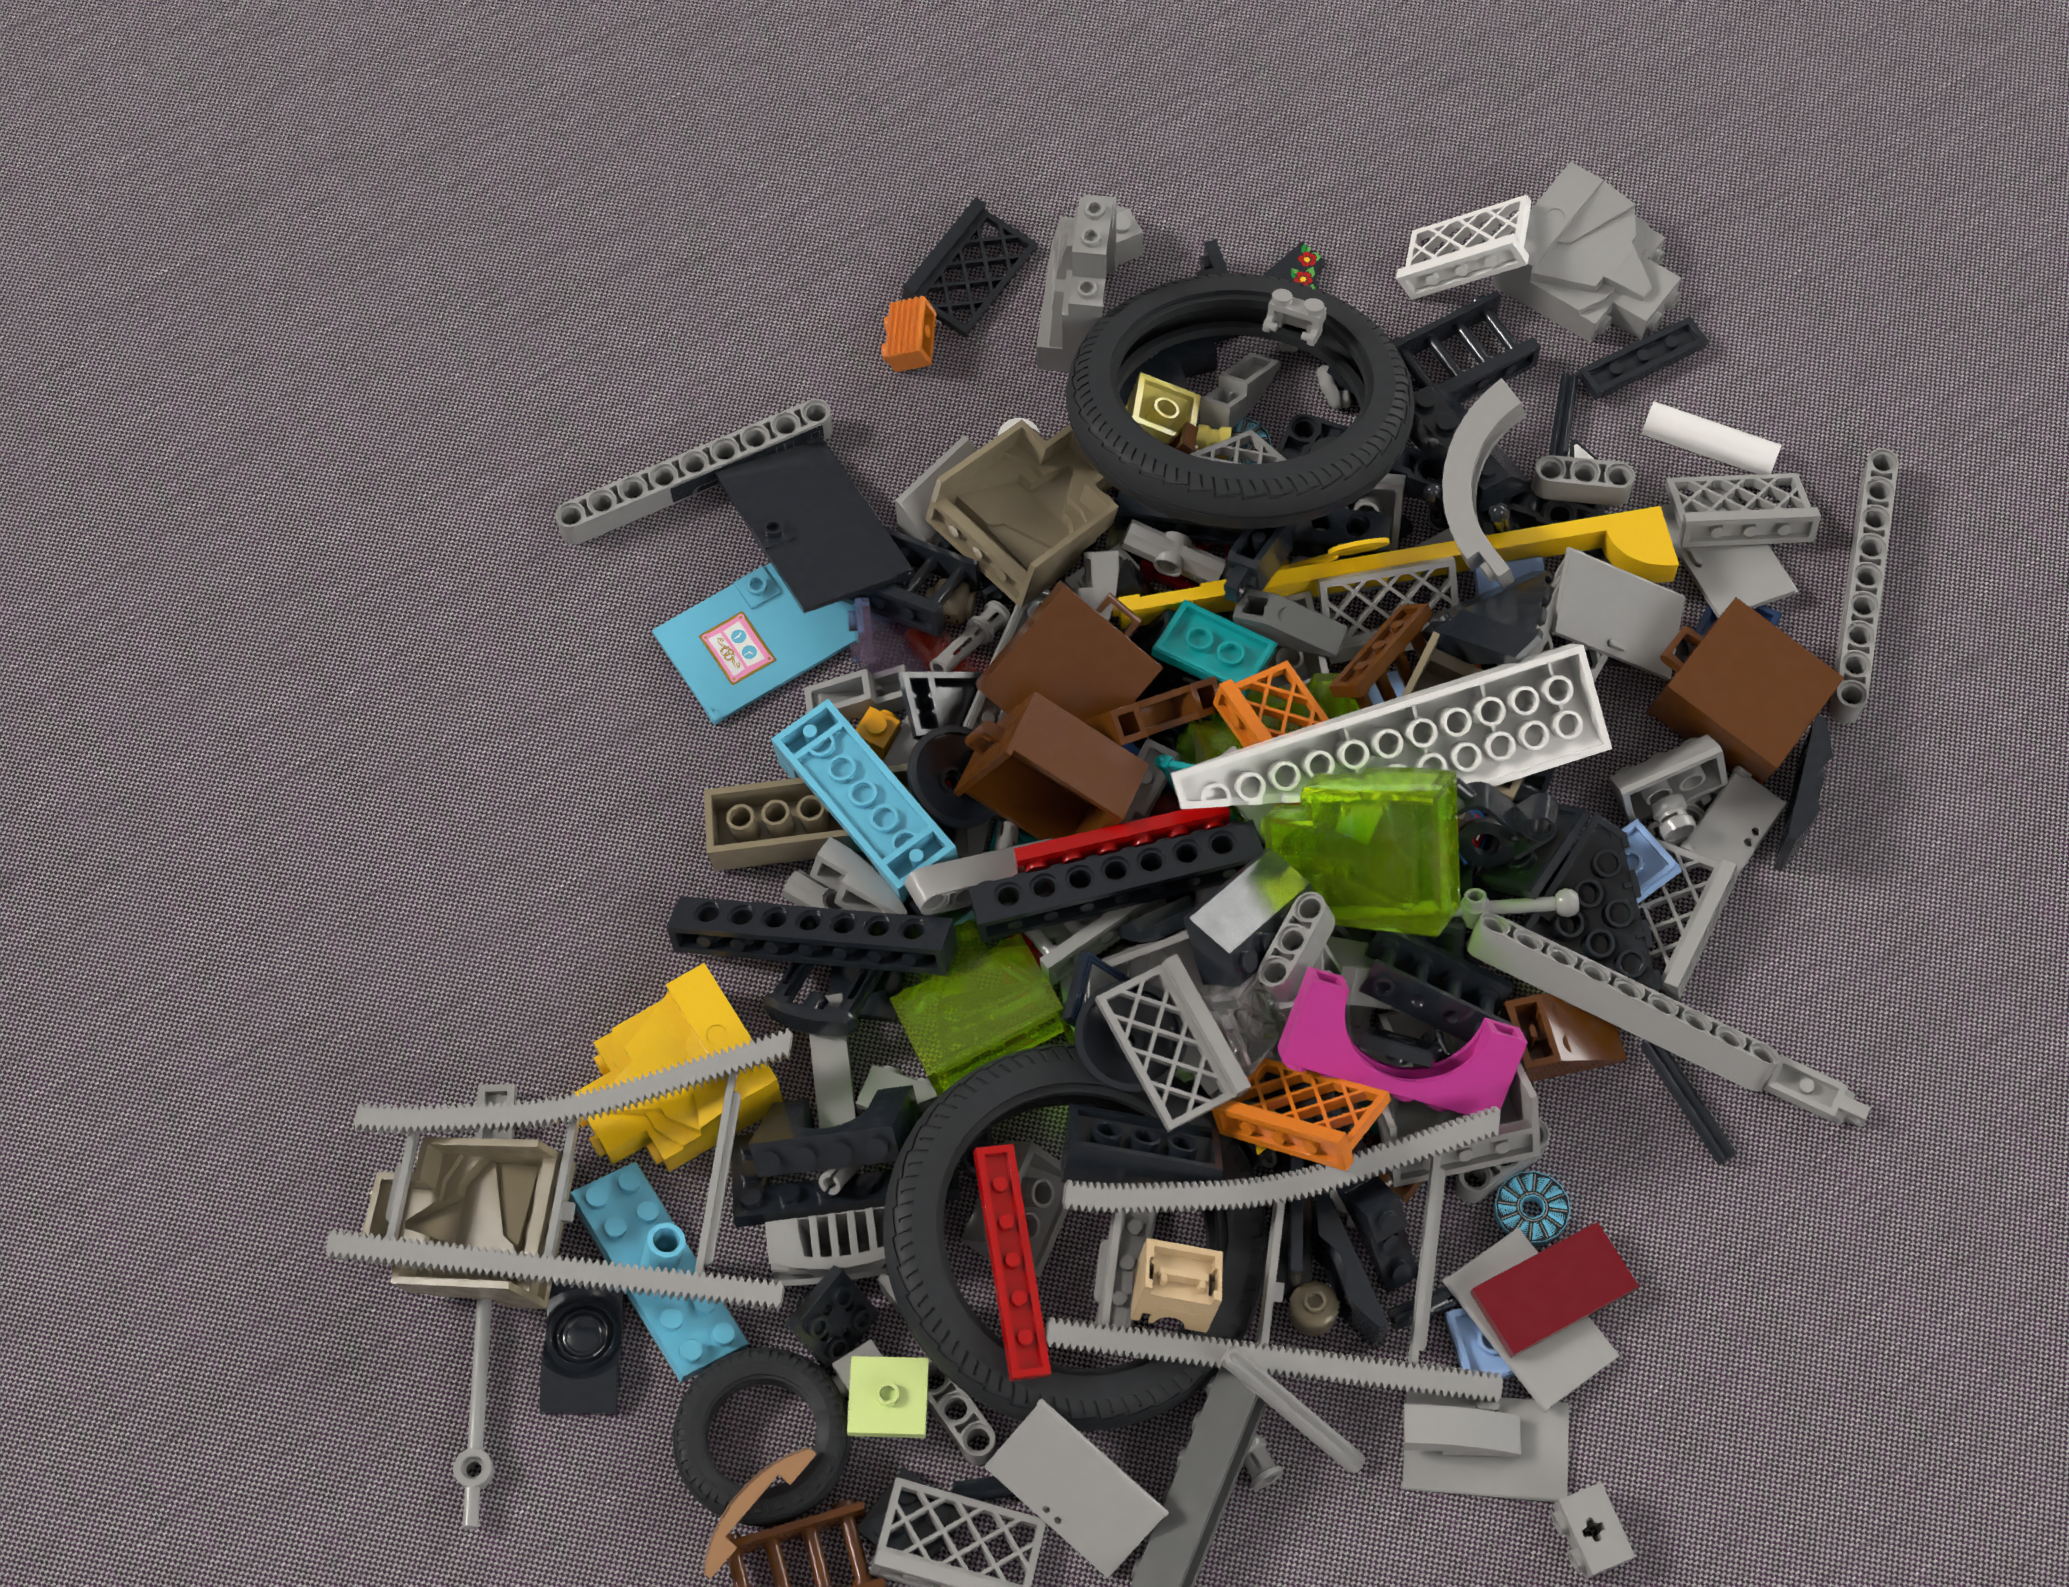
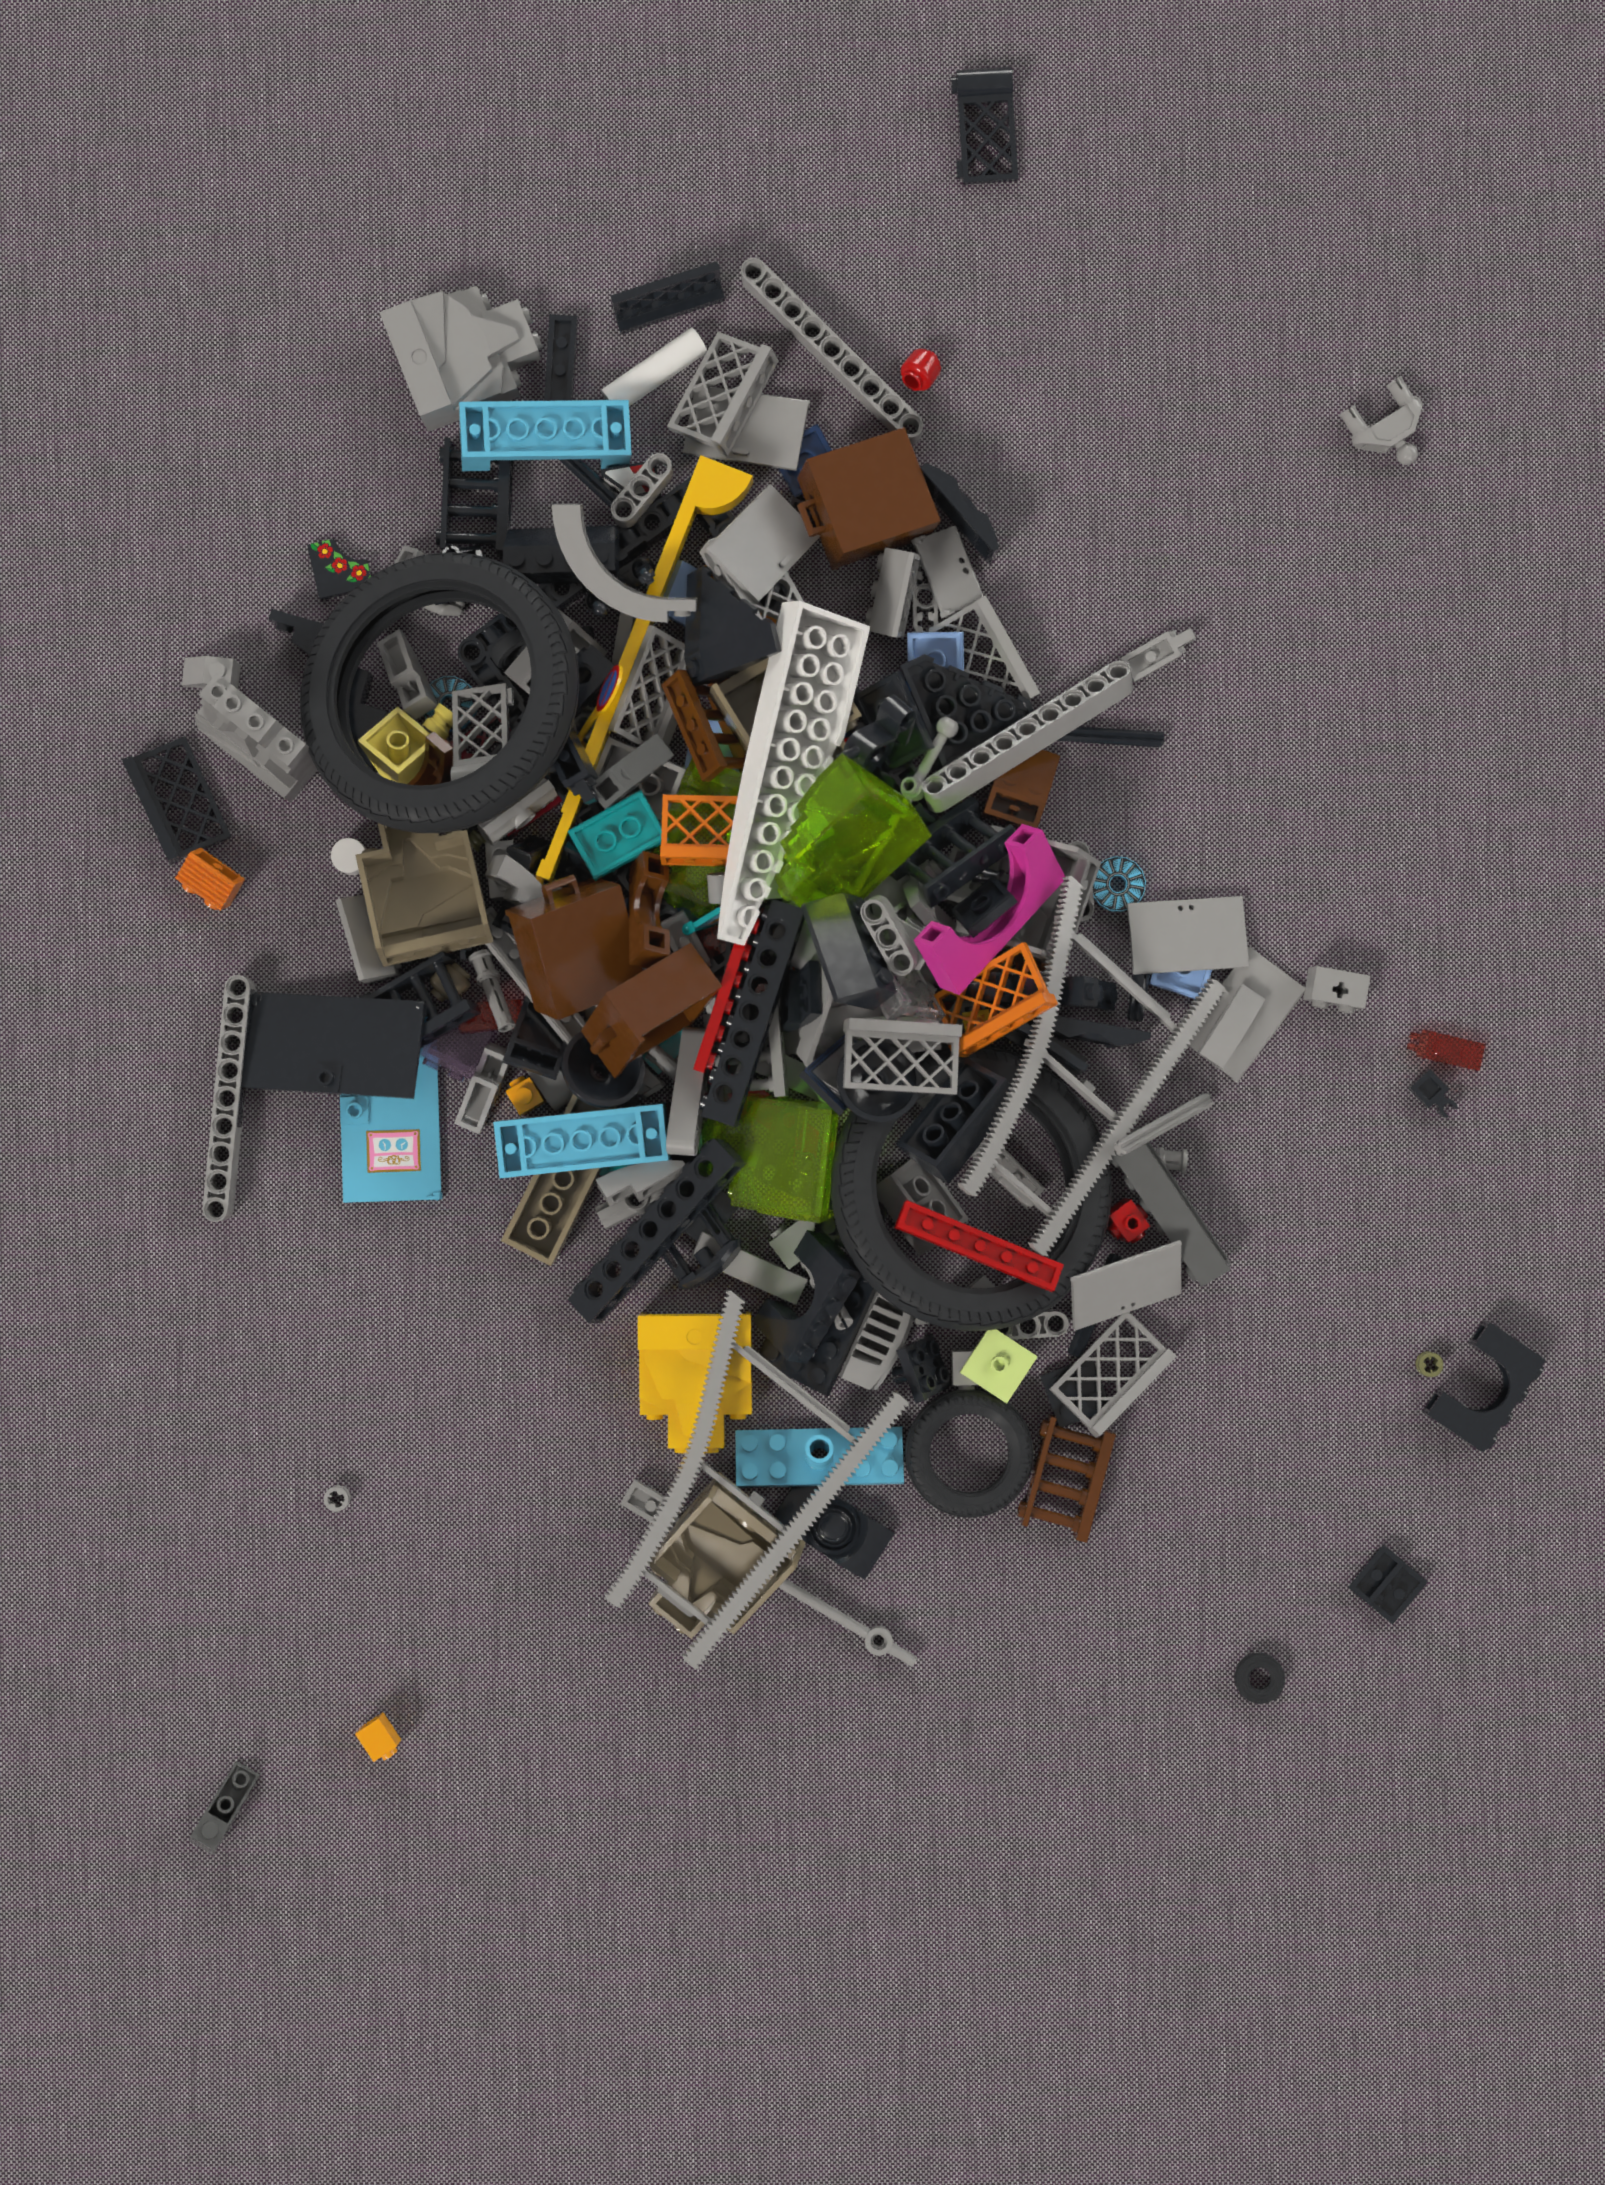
camera: 65 degrees left, 25 degrees up
(69, 986) = (378, 1738): none -> light orange brick
(318, 793) = (333, 1506): none -> light grey bush
(719, 1546) = (1009, 1455): medium nougat slope -> none
(1160, 1439) = (1127, 1221): none -> red brick
(1182, 1285) = (1057, 1149): tan piece -> none
(1295, 312) = (391, 613): light grey piece -> none
(1313, 1308) = (1102, 1065): dark tan head -> none
(1472, 260) = (411, 452): white fence -> none
(1554, 1289) = (1181, 909): dark red tile -> none
(1573, 361) = (544, 431): none -> medium azure plate
(1673, 818) = (917, 607): light grey wheel -> none
(1780, 408) = (668, 298): none -> black fence
(1916, 675) = (920, 370): none -> red head

